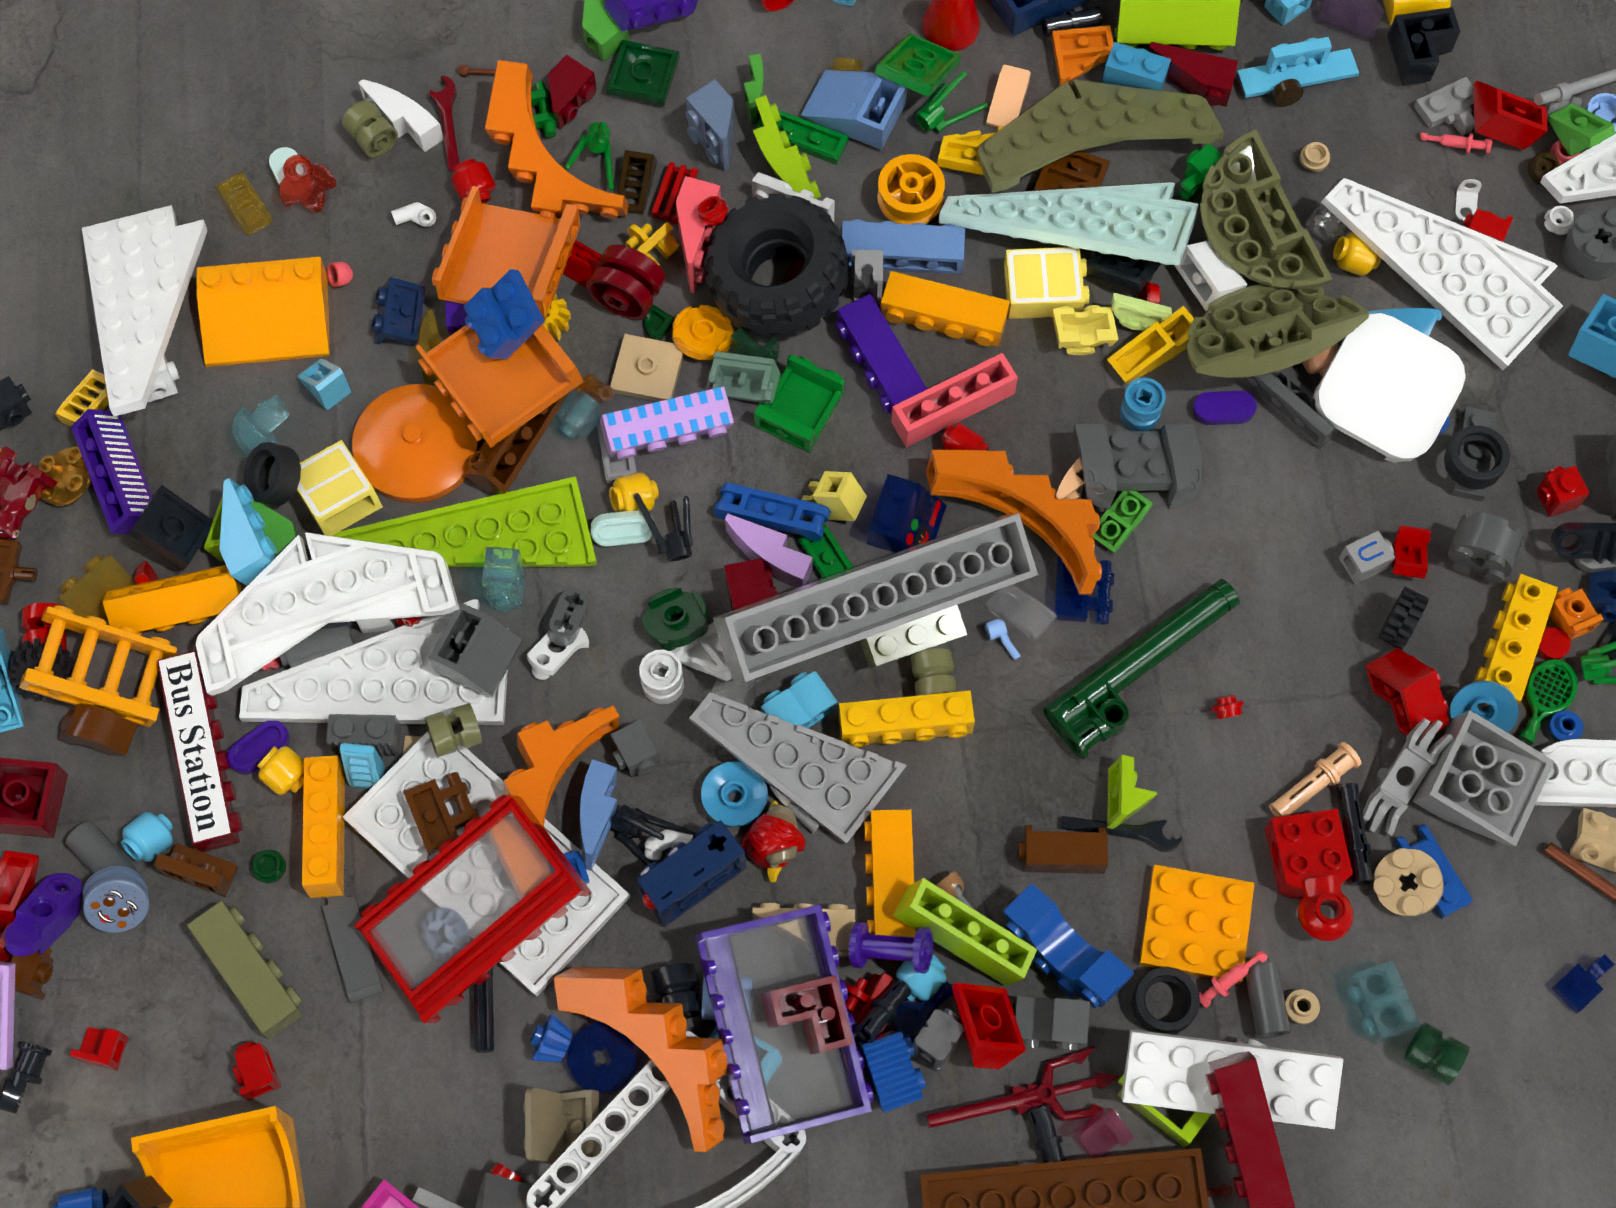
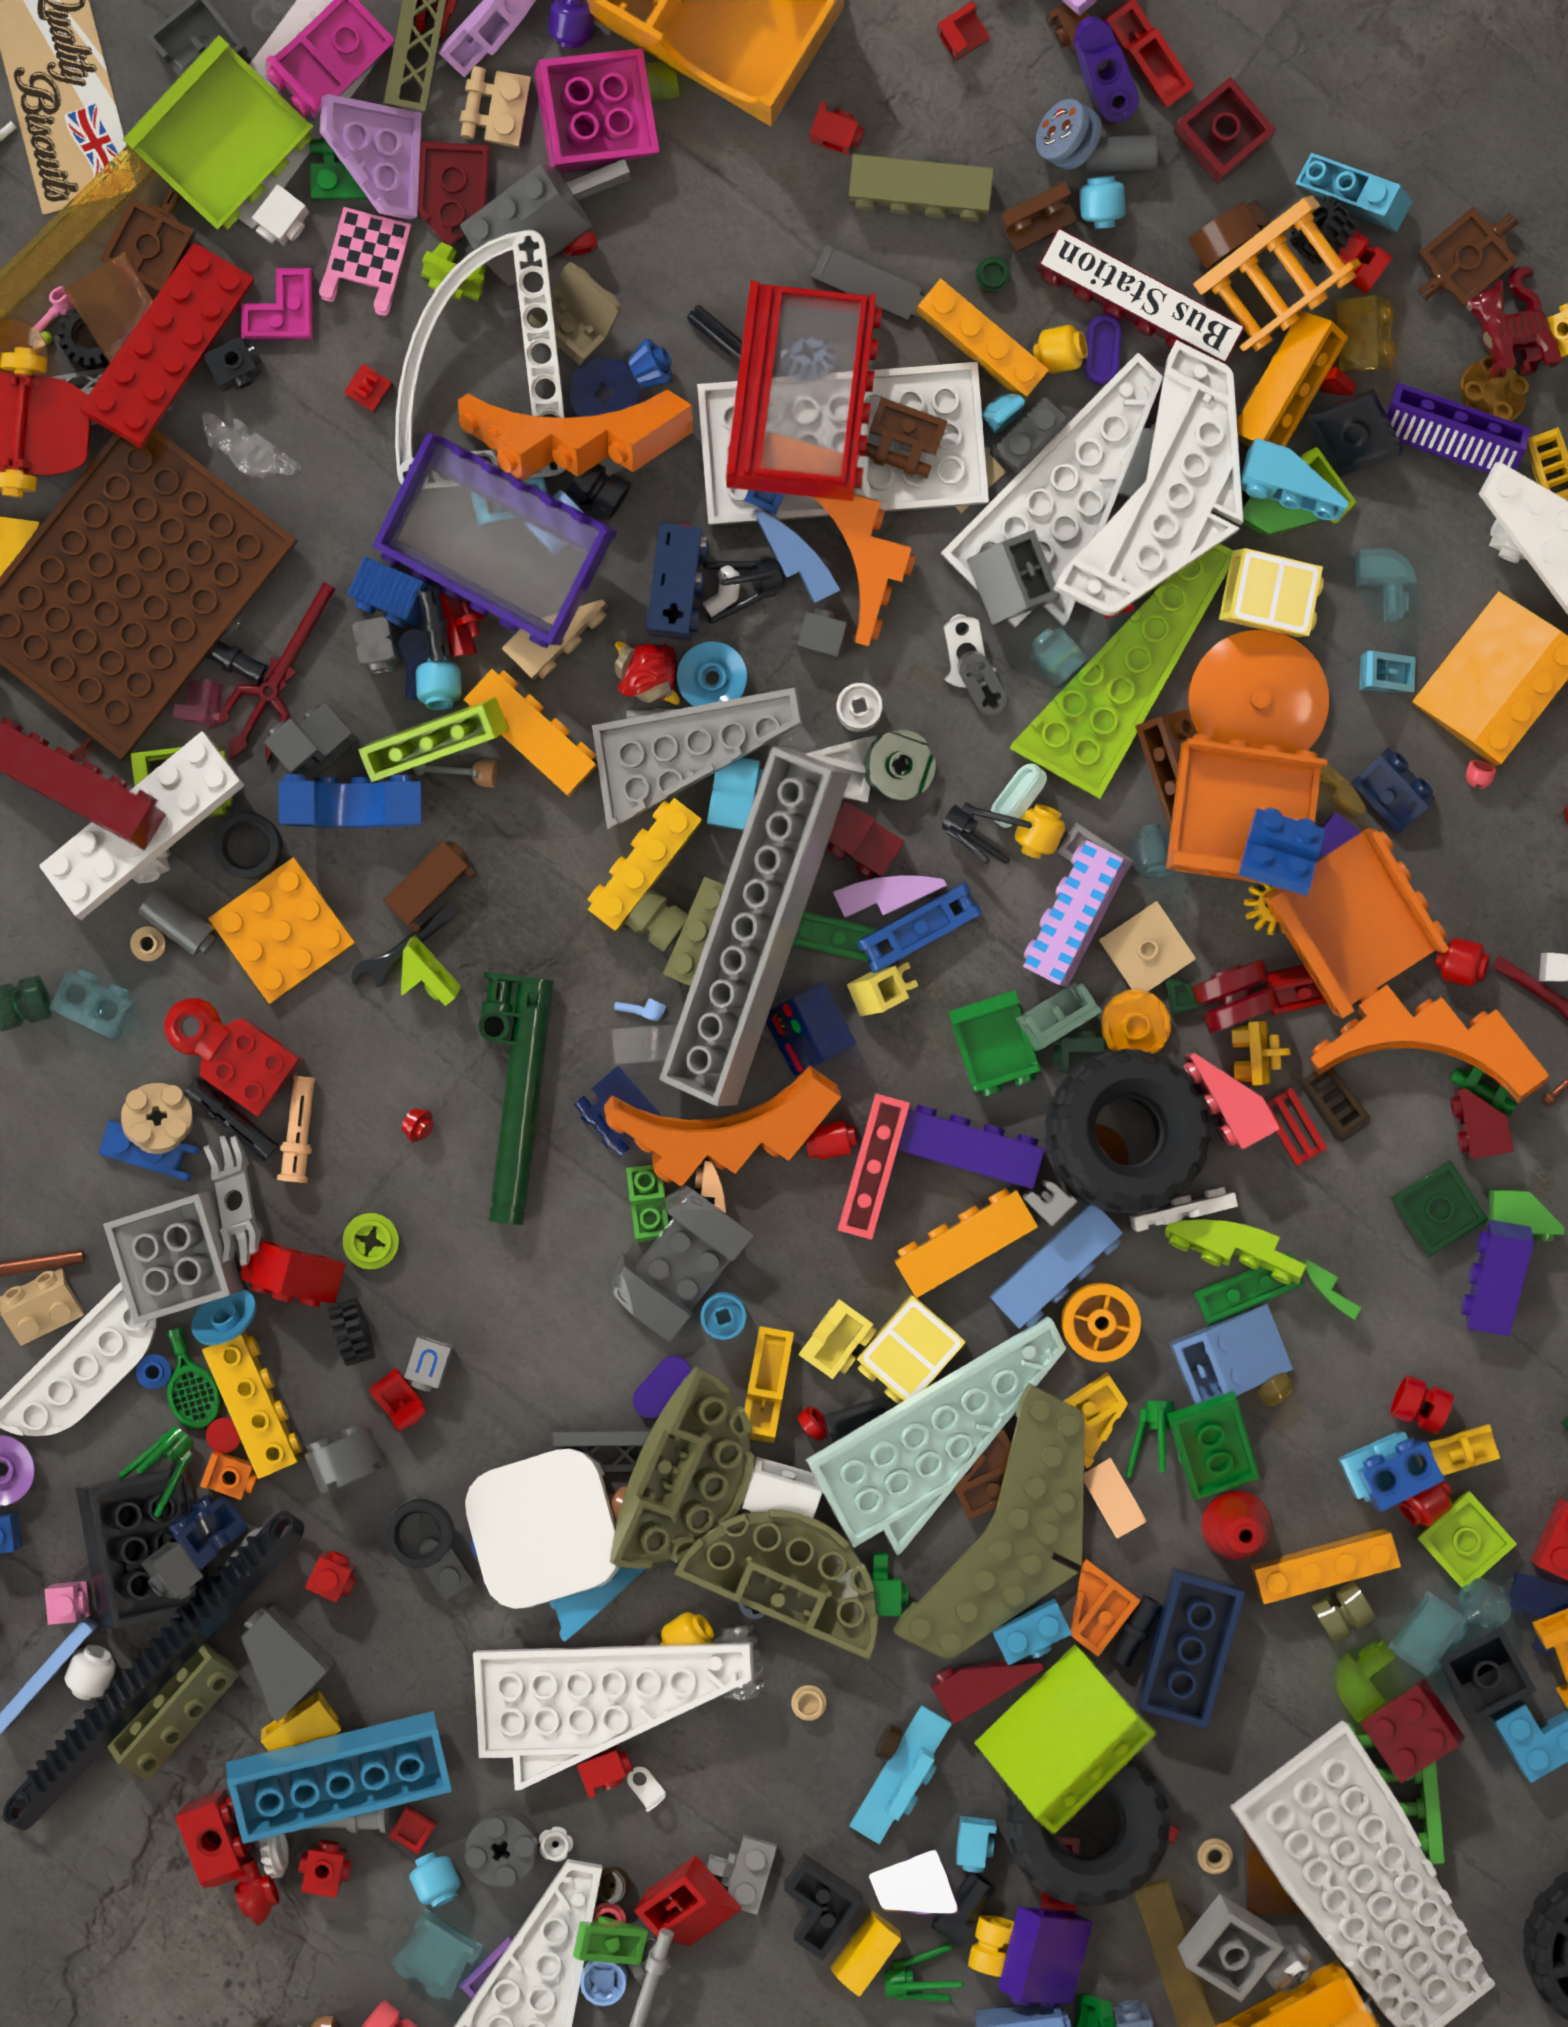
camera: 135 degrees right, 20 degrees up
(286, 477) = (1320, 567): black tyre -> none
(416, 213) = (1482, 890): white arm -> none
(441, 732) = (968, 491): olive wheel -> none
(596, 387) = (1163, 891): clear orange arm -> none
(597, 141) = (1403, 1104): green plant -> none
(712, 122) = (1321, 1216): sand blue slope -> none
(712, 210) = (1226, 1115): red plate -> none
(819, 1008) = (480, 570): dark red brick -> none
(866, 945) = (472, 672): dark purple hose -> none
(988, 1024) = (351, 690): red slope -> none
(1138, 313) = (806, 1398): yellowish green tile -> none
(1222, 984) = (218, 899): coral piece -> none
(1335, 655) = (356, 1249): none -> lime gear
(1459, 142) = (705, 1841): coral piece -> none

